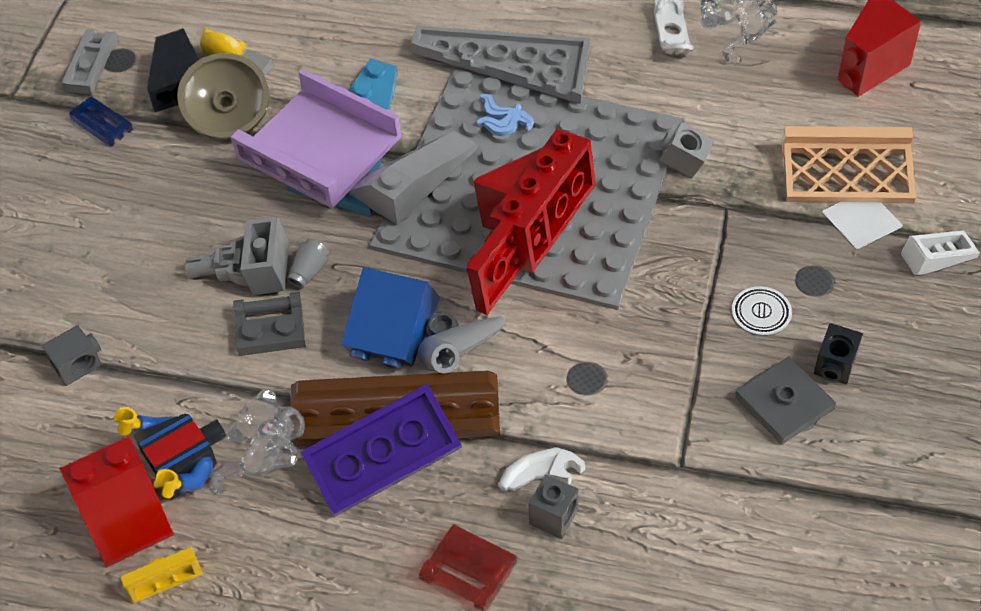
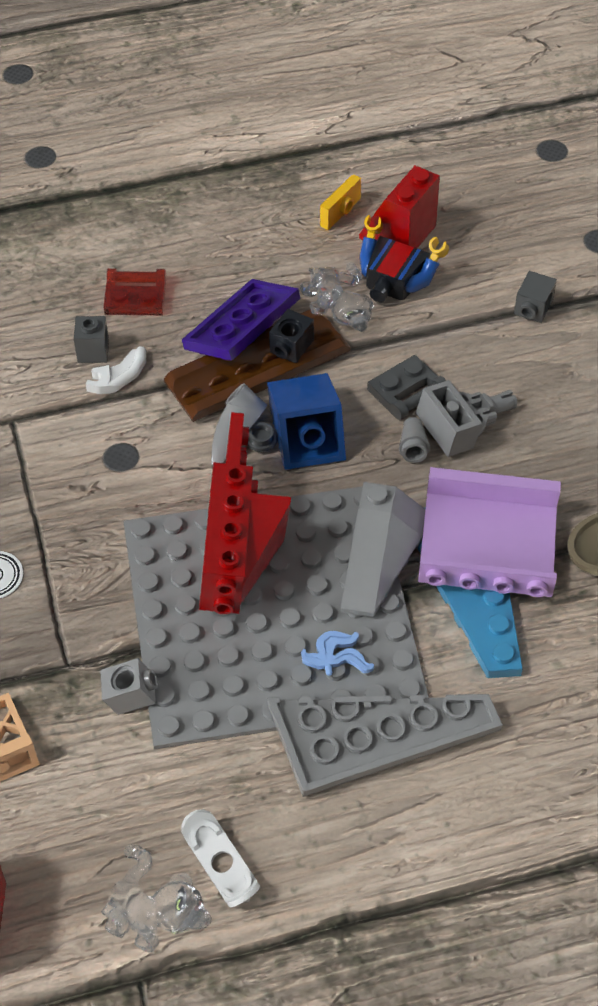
camera: 150 degrees right, 0 degrees up
(349, 405) = (291, 336): none -> black brick

